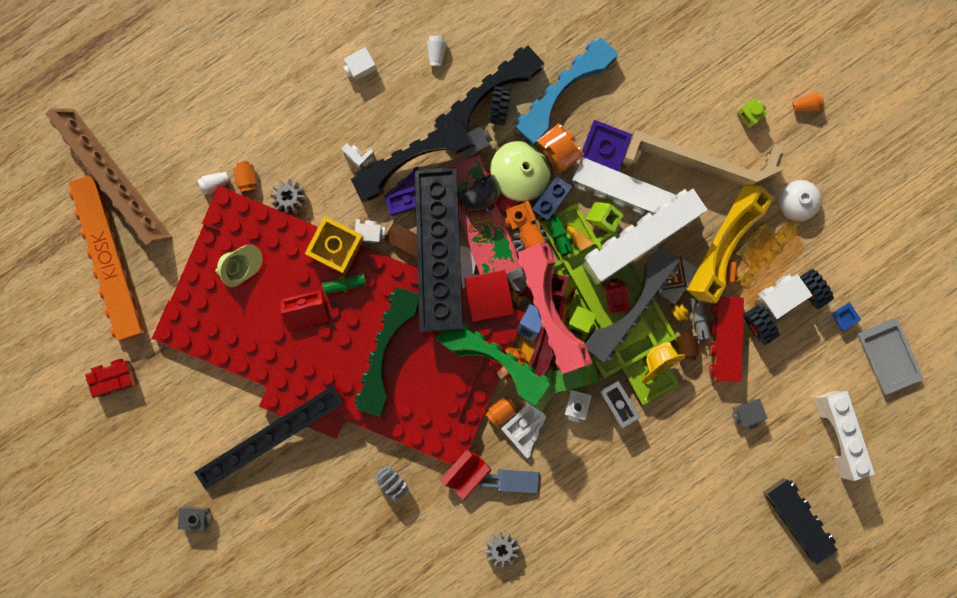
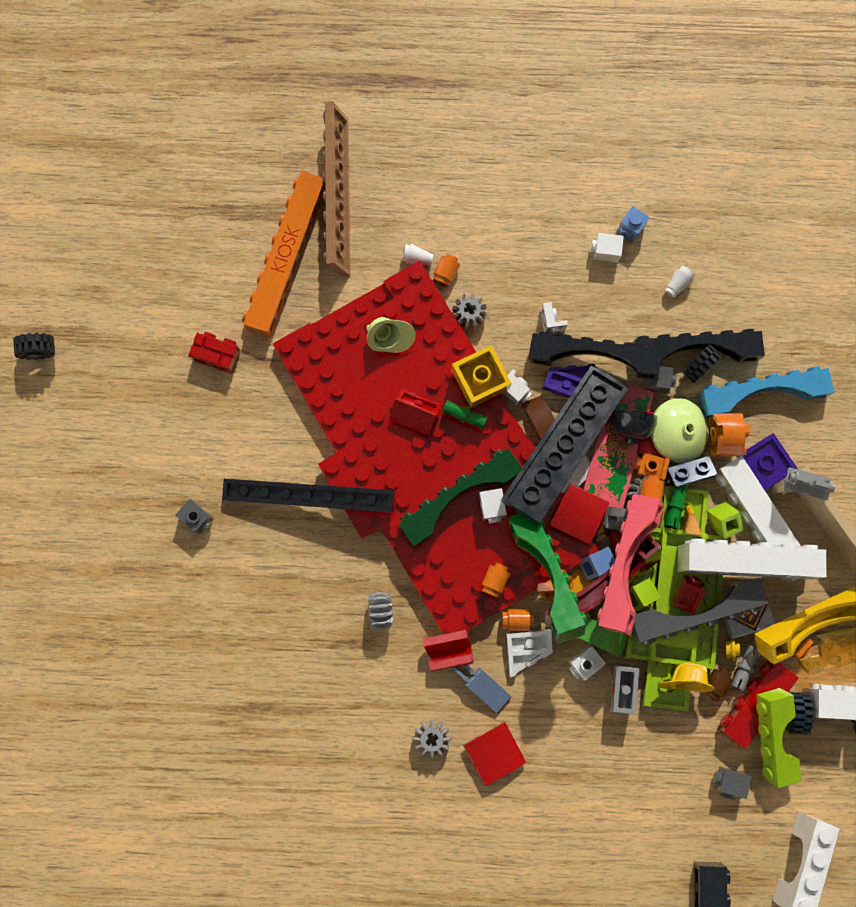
camera: 30 degrees right, 5 degrees down
(366, 31) = (632, 224): none -> medium blue brick
(417, 341) = (491, 507): none -> white brick
(461, 395) = (495, 579): none -> orange brick
(557, 525) = (494, 754): none -> red slope
(646, 144) = (808, 484): none -> light grey hinge
(742, 337) = (775, 711): none -> lime arch

